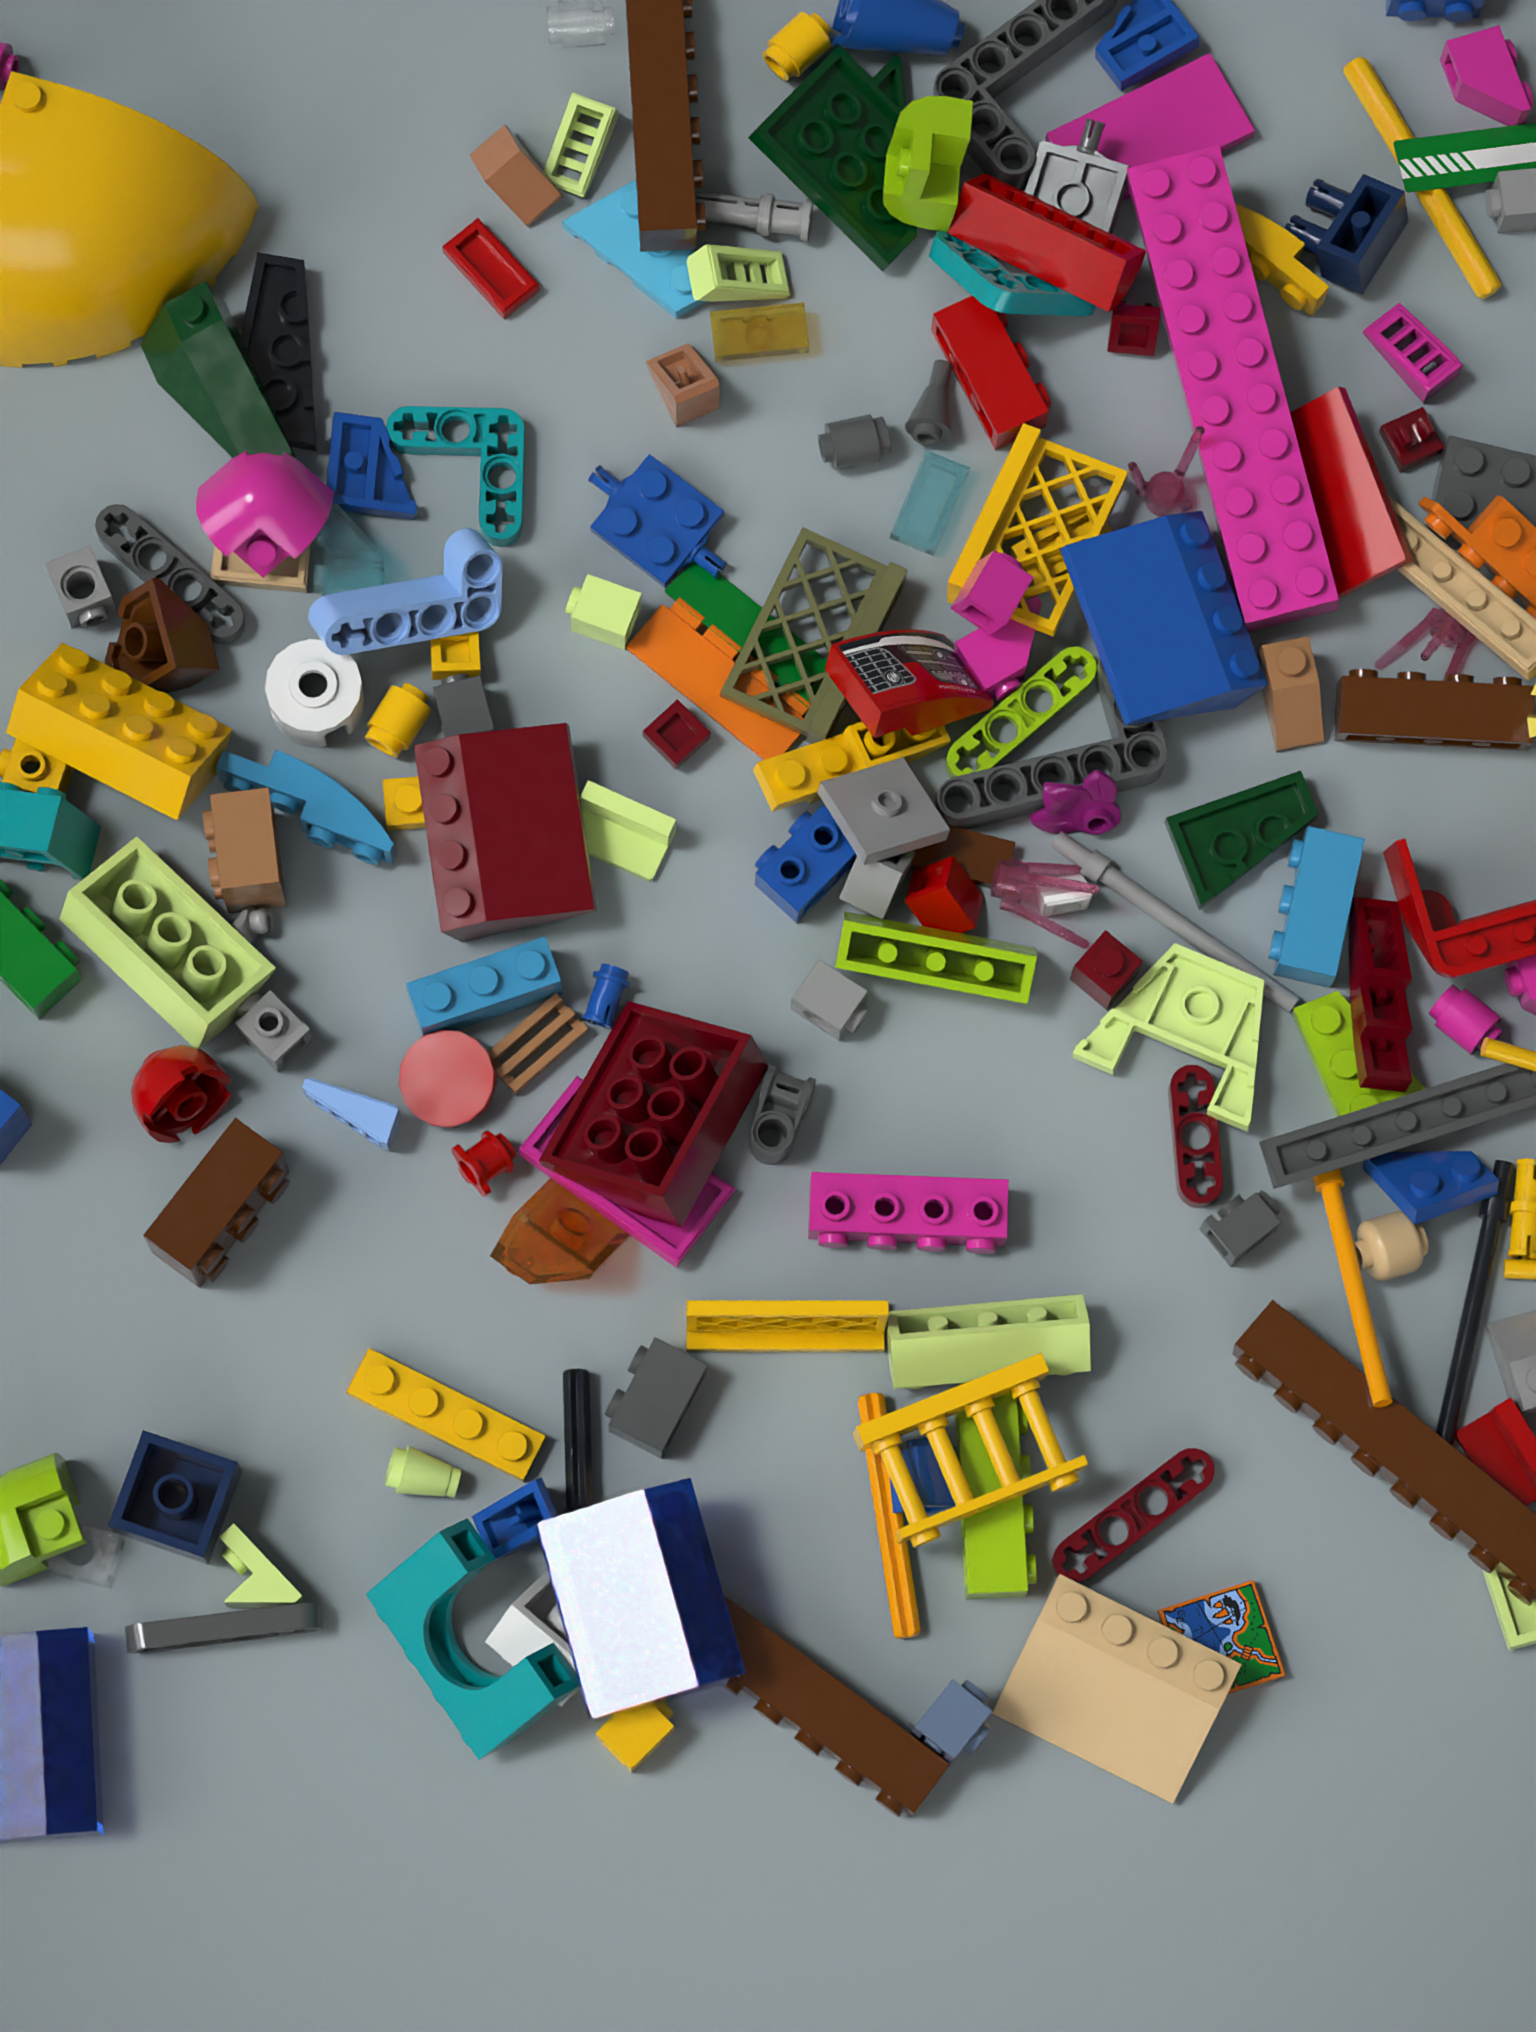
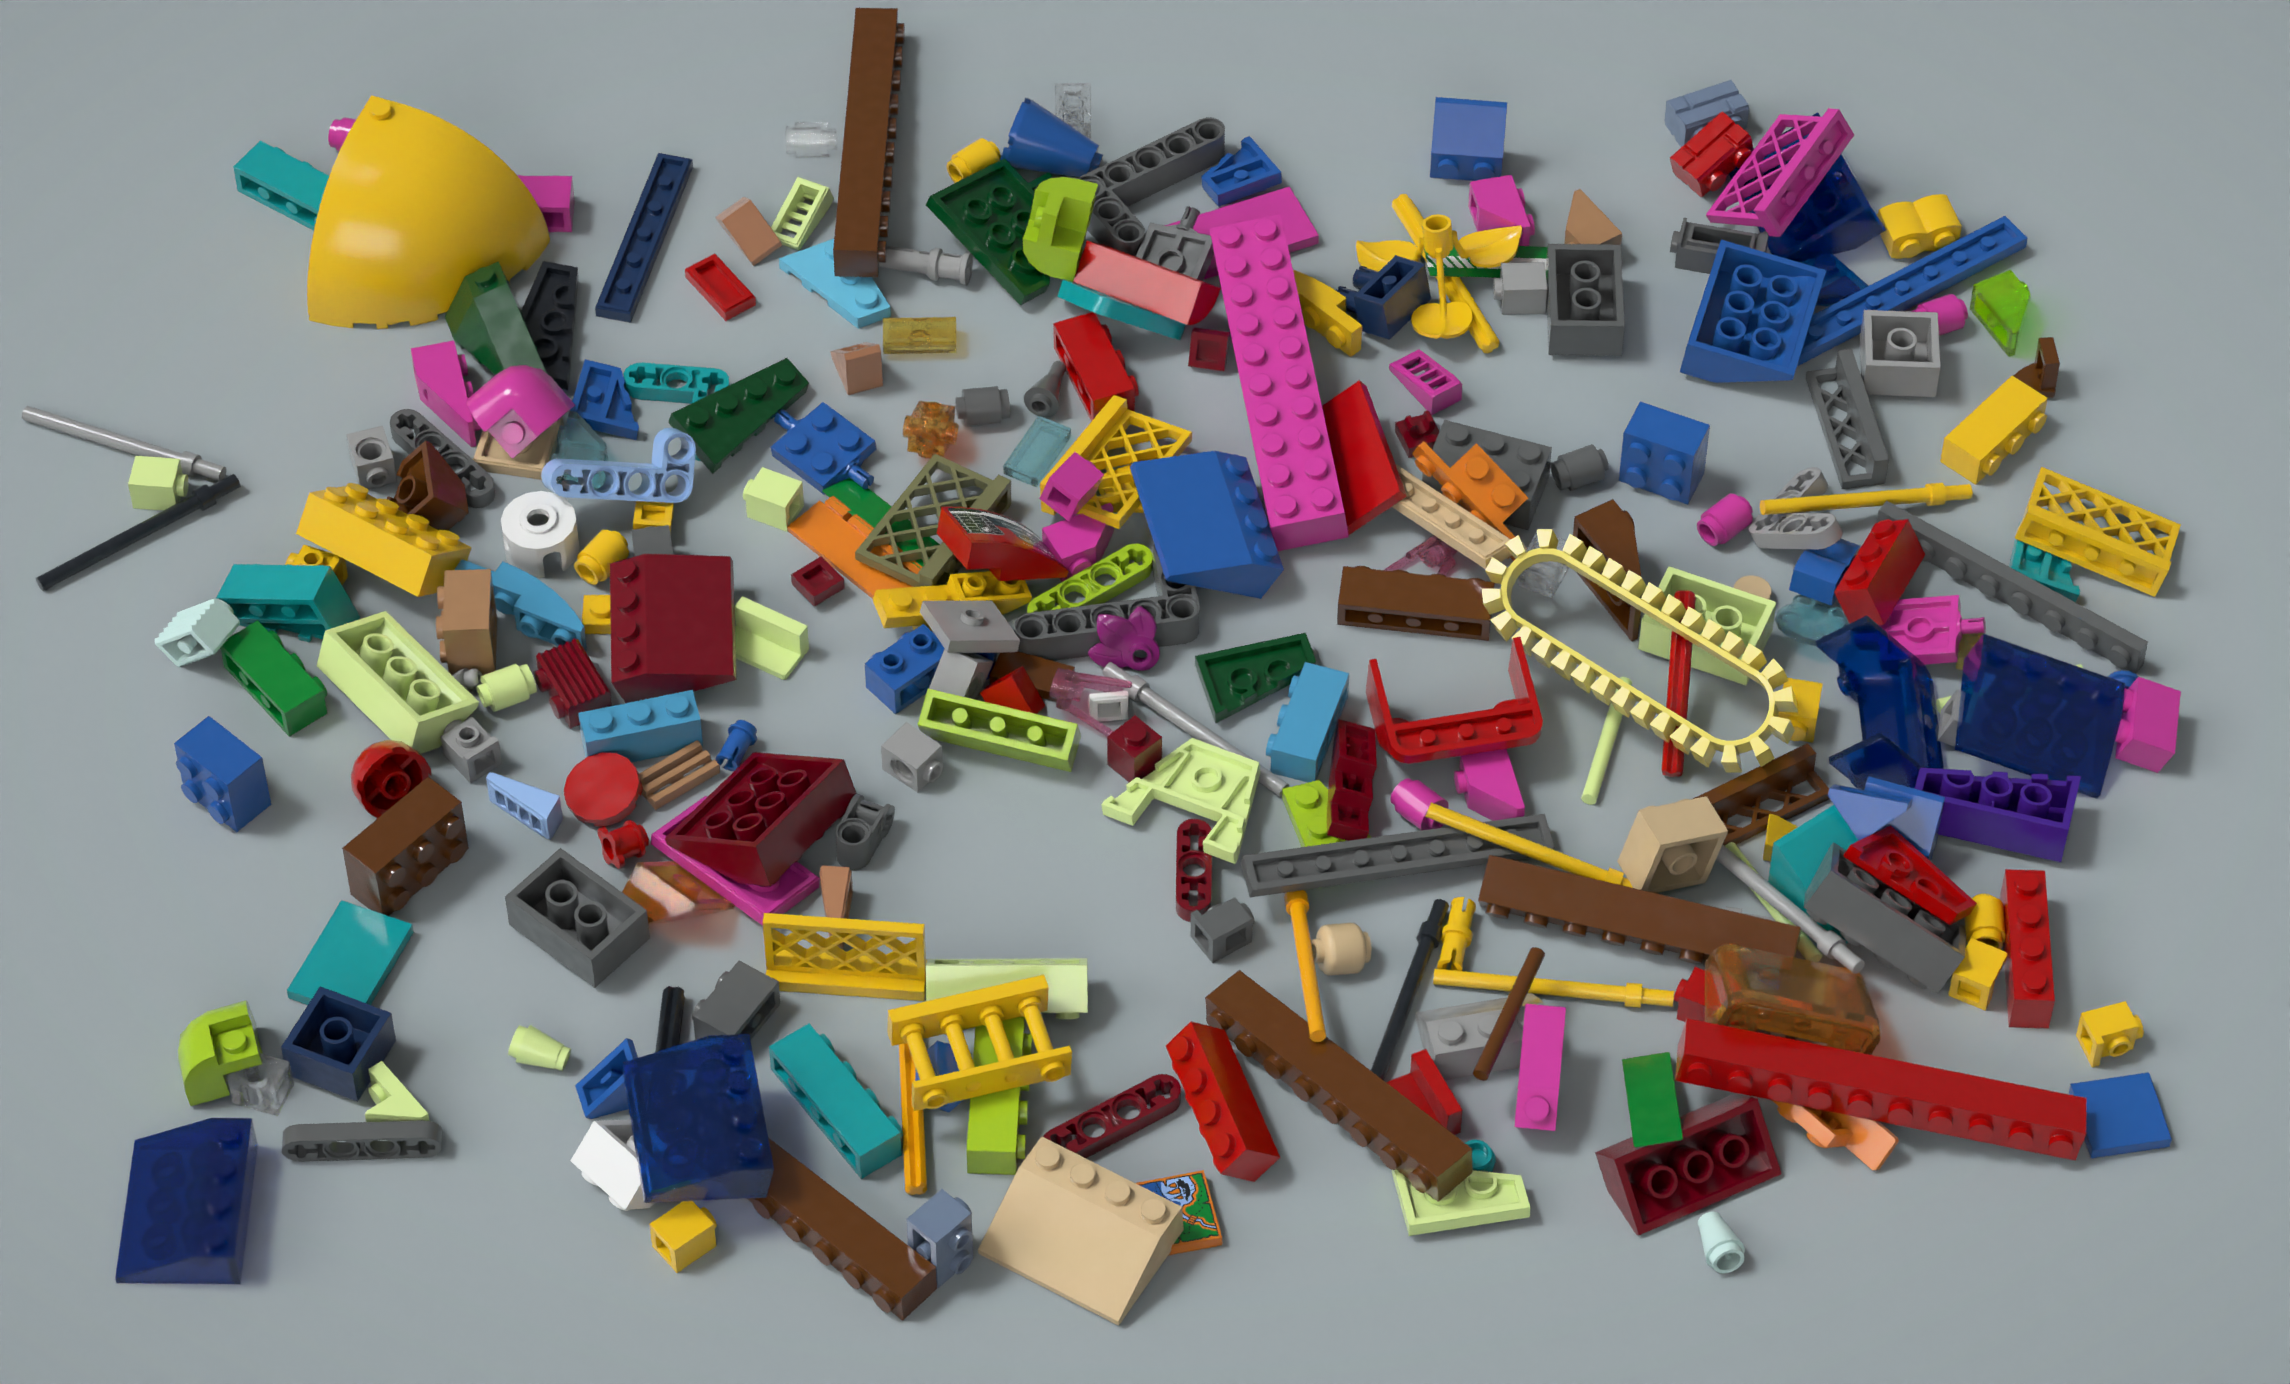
camera: 10 degrees right, 25 degrees down
(154, 464) = (442, 386): none -> dark pink slope
(168, 1358) = (352, 954): none -> teal tile
(247, 146) = (554, 199): none -> dark pink slope
(305, 933) = (506, 687): none -> yellowish green brick
(381, 194) = (644, 238): none -> dark blue tile
(388, 922) = (570, 681): none -> dark red brick
(418, 1611) = (520, 1132): teal arch -> none
(445, 1284) = (577, 917): none -> dark grey brick
(446, 1415) = (561, 1012): yellow plate -> none
(537, 485) = (739, 411): none -> dark green wing
(710, 277) = (896, 291): yellowish green slope -> none
(759, 1218) = (836, 892): none -> nougat slope
(794, 489) = (930, 429): none -> clear orange brick
(796, 1520) = (836, 1100): none -> teal brick
(908, 1210) = (956, 898): dark pink brick -> none
(1166, 489) = (1222, 443): clear pink plant -> none
(1269, 1489) = (1222, 1102): none -> red brick
(1292, 693) = (1304, 583): medium nougat slope -> none
(1431, 1181) = (1380, 908): blue wing -> none
(1478, 142) = (1484, 248): none -> yellow plant

